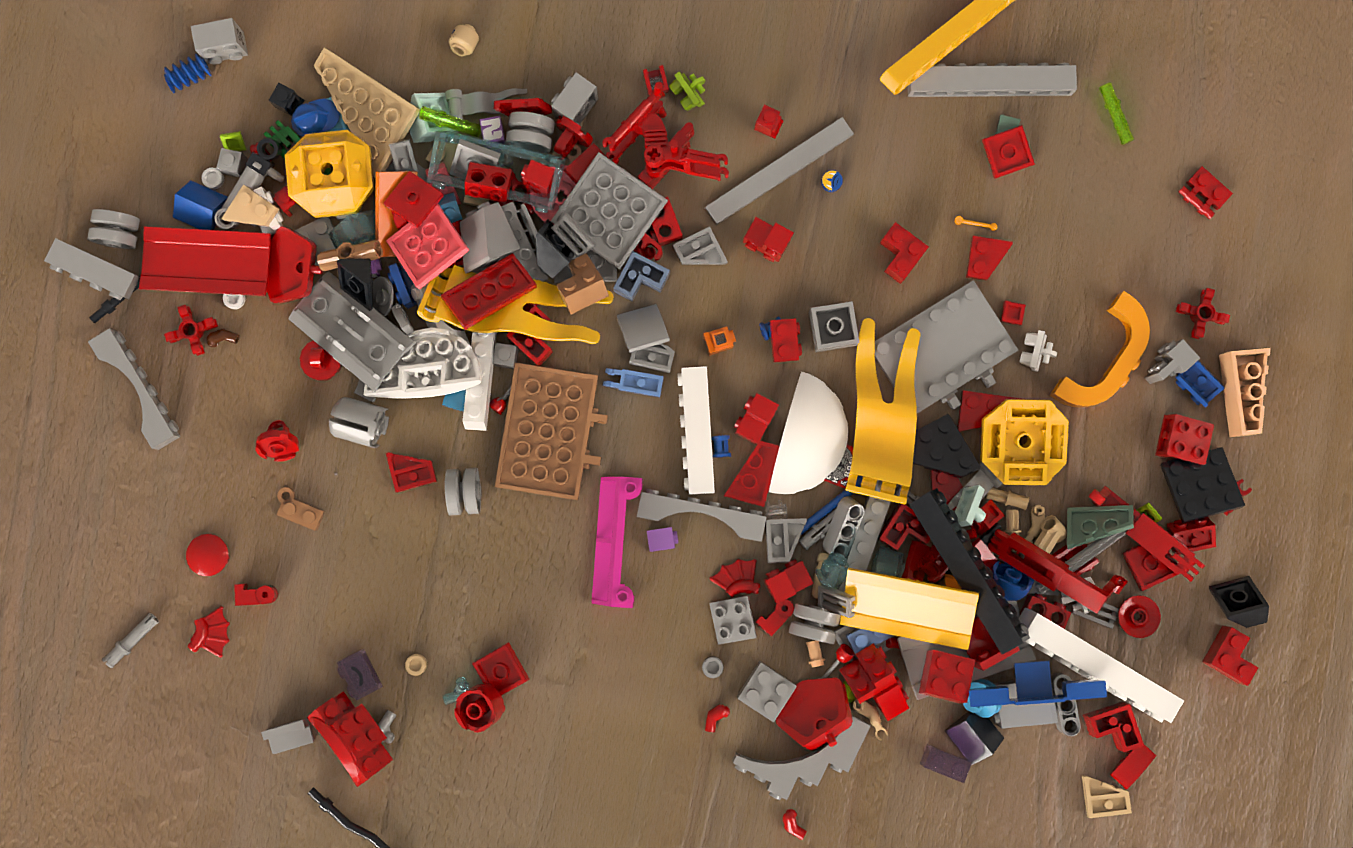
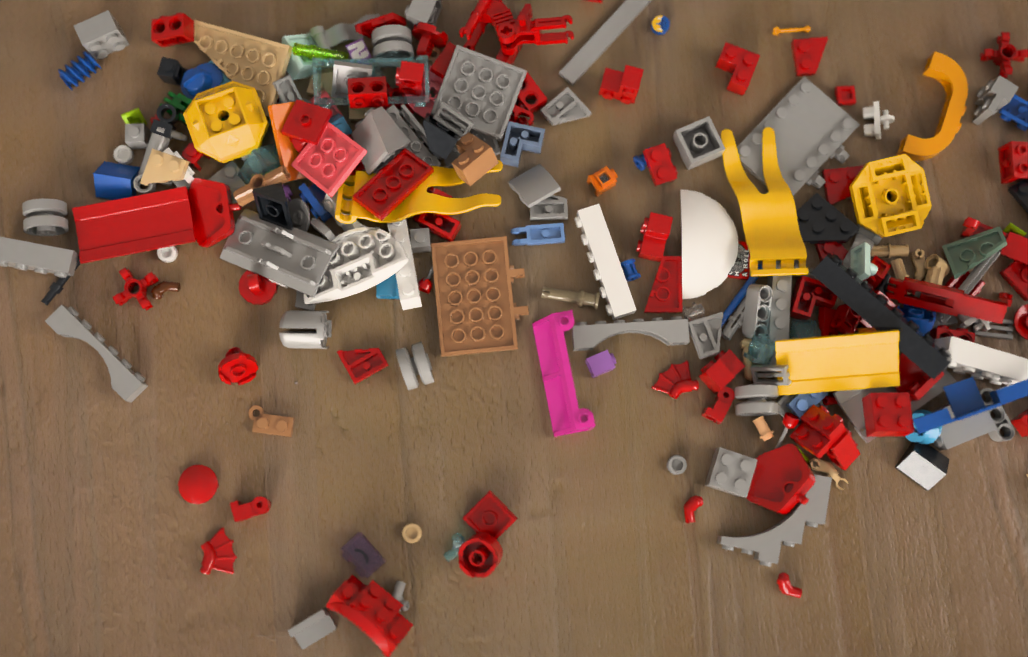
camera: 15 degrees left, 5 degrees down
(124, 647) = (146, 579): light grey pin -> none
(297, 53) = (172, 30): none -> red brick
(659, 463) = (580, 297): none -> dark tan pin
(733, 620) = (683, 418): light grey hinge -> none
(945, 763) = (906, 494): brick -> none

